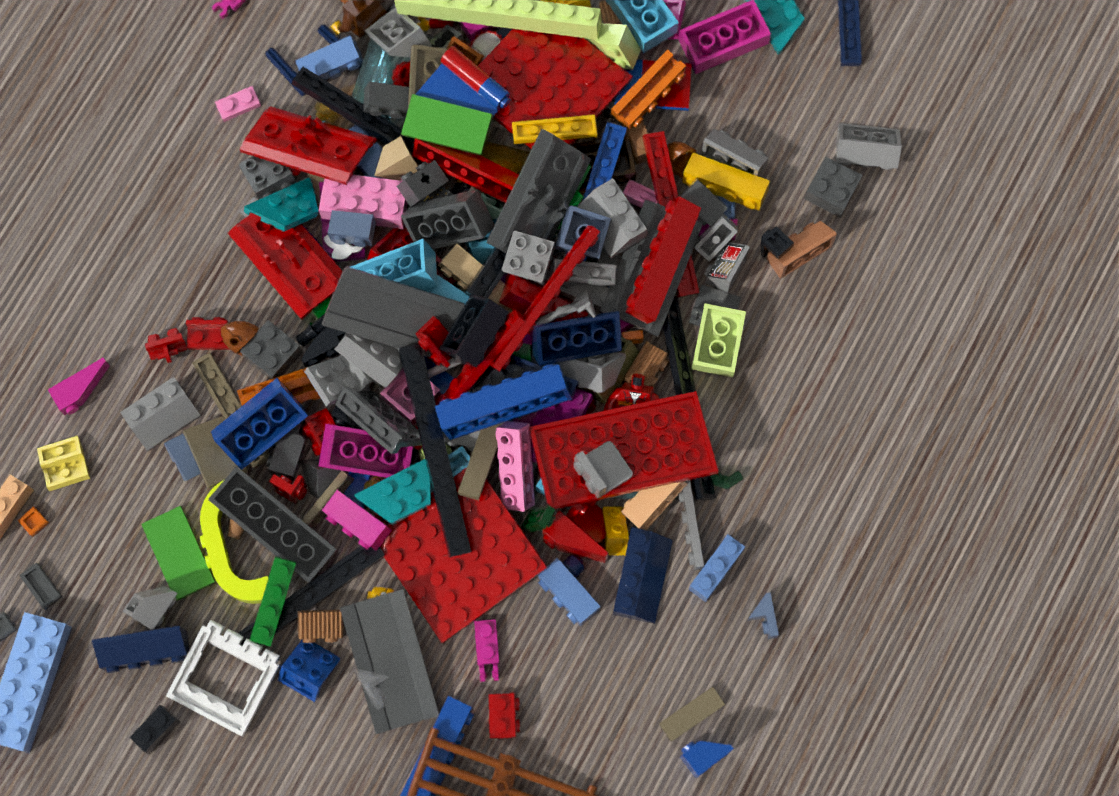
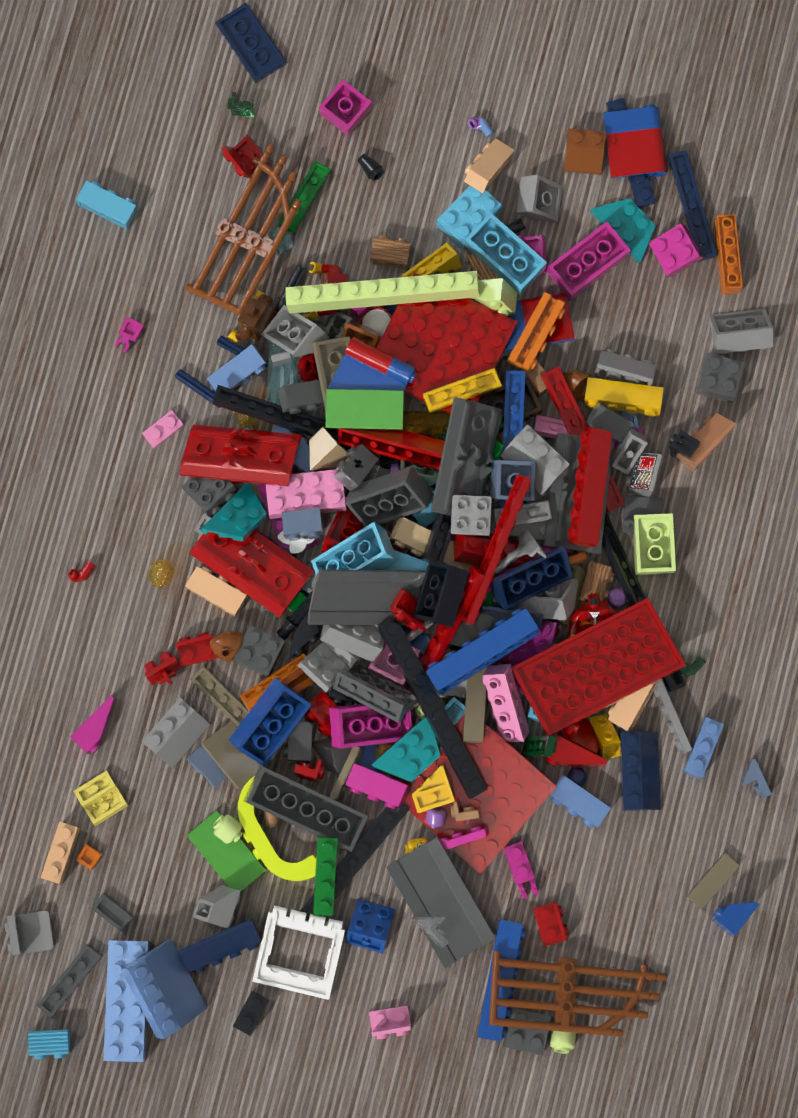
camera: 15 degrees left, 5 degrees up
(68, 679) = (164, 989): none -> medium blue slope
(111, 229) = (83, 574): none -> red arm
(185, 526) = (227, 829): none -> yellowish green head
(192, 246) = (160, 573): none -> clear yellow head
(245, 278) = (216, 591): none -> light nougat brick
(301, 776) = (390, 1021): none -> bright pink bracket
(320, 624) = (371, 885): medium nougat brick -> none
(376, 57) = (281, 358): none -> light grey tile
(409, 569) = (436, 817): none -> medium lavender piece
(413, 541) = (434, 791): none -> yellow wing
(428, 598) = (459, 838): none -> dark pink hinge
(443, 572) = (466, 814): none -> medium nougat bracket
(602, 469) = (586, 689): light grey bracket -> none
(665, 387) = (616, 598): none -> medium lavender piece
(819, 46) = (676, 250): none -> dark pink brick
(873, 64) = (728, 254): none -> orange brick

